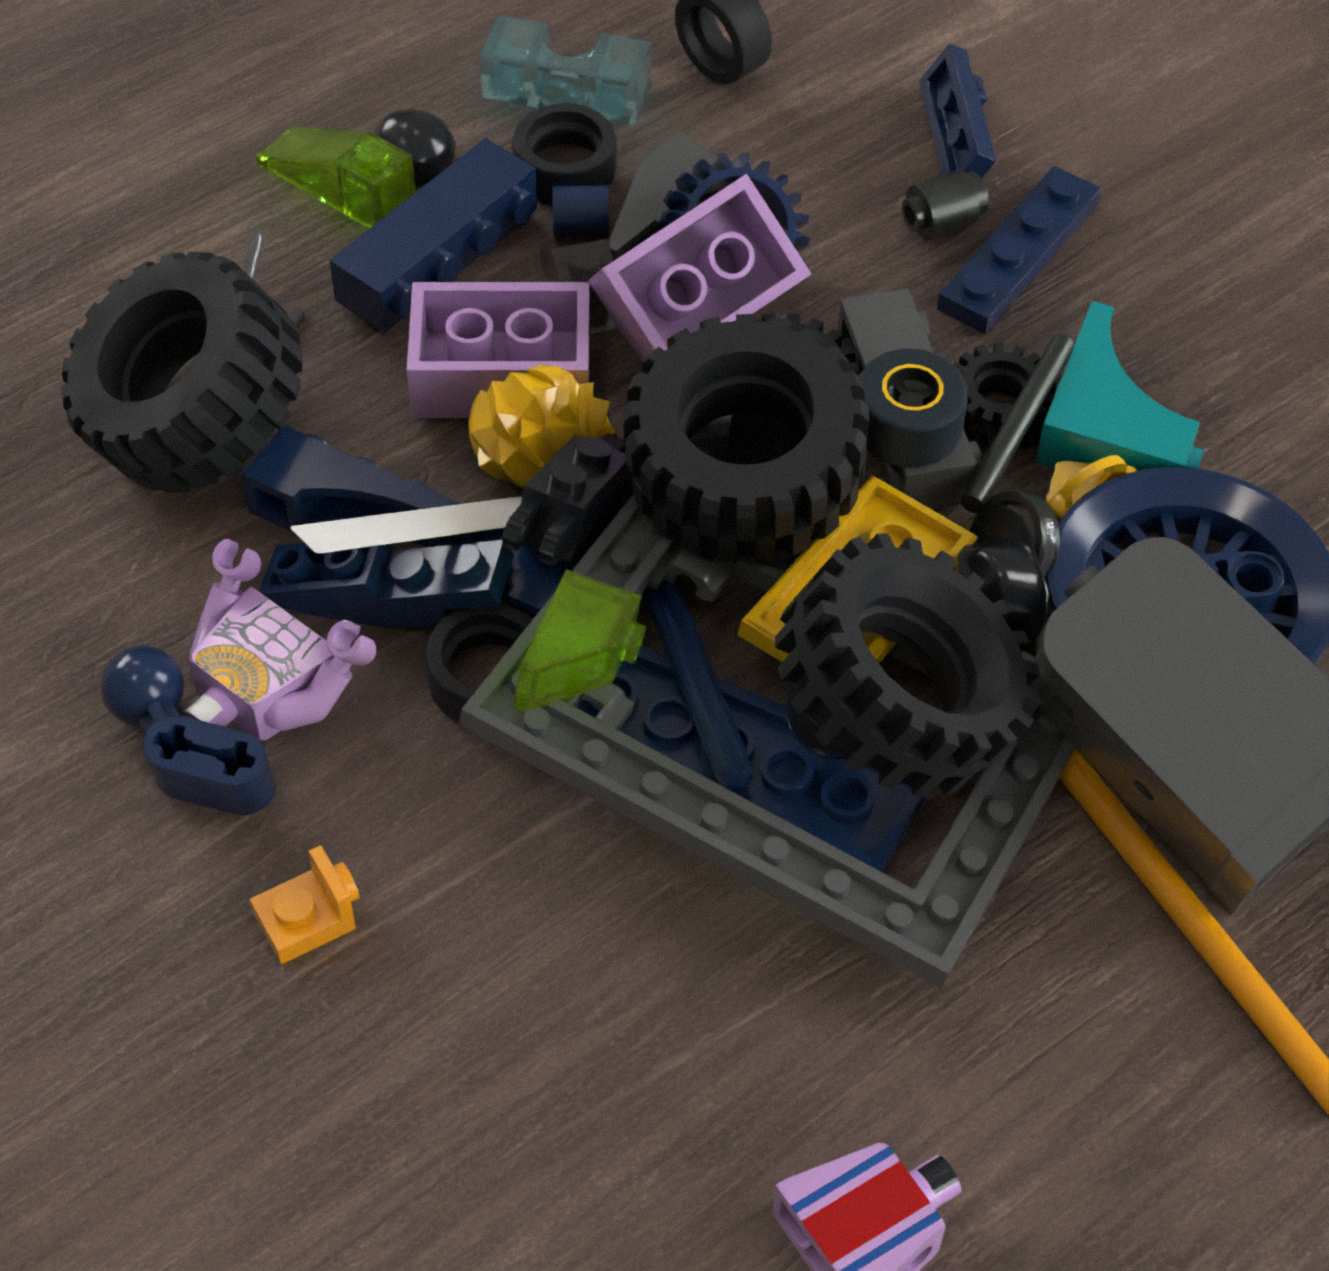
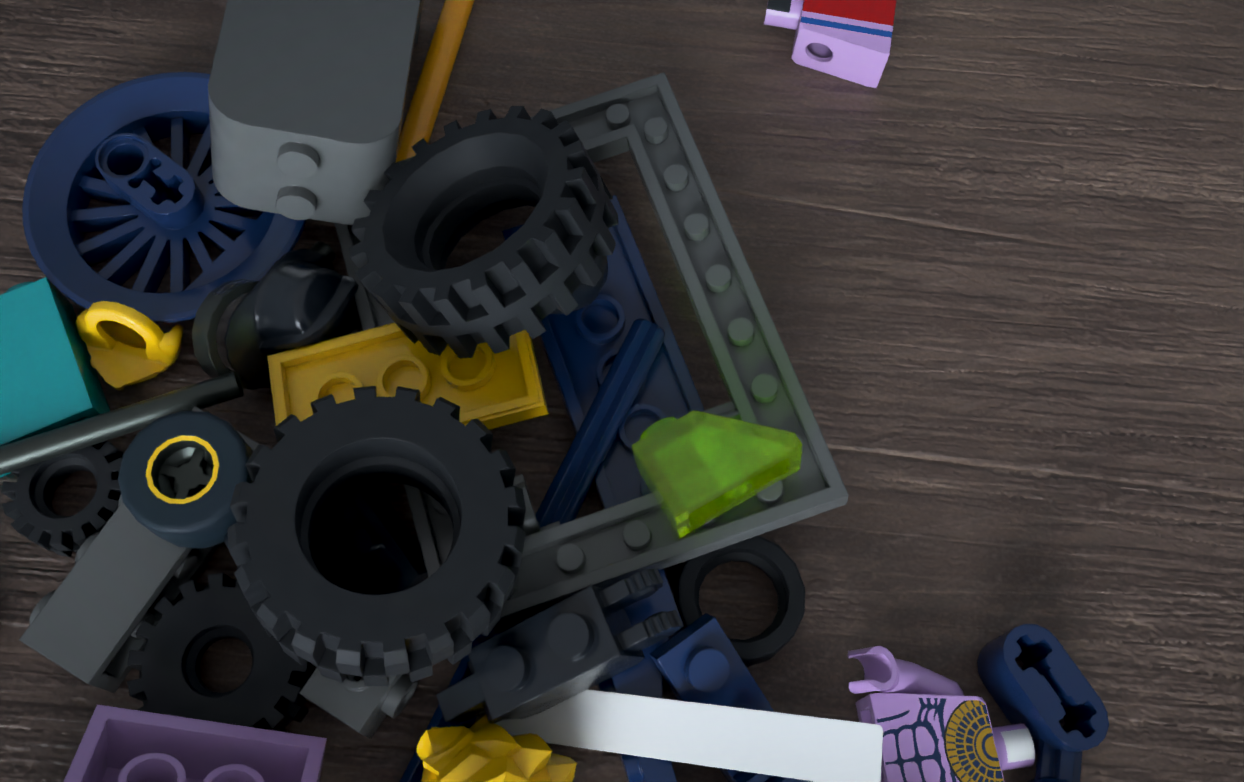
camera: 140 degrees left, 15 degrees up
(307, 908) = (1037, 509): light orange bracket -> none

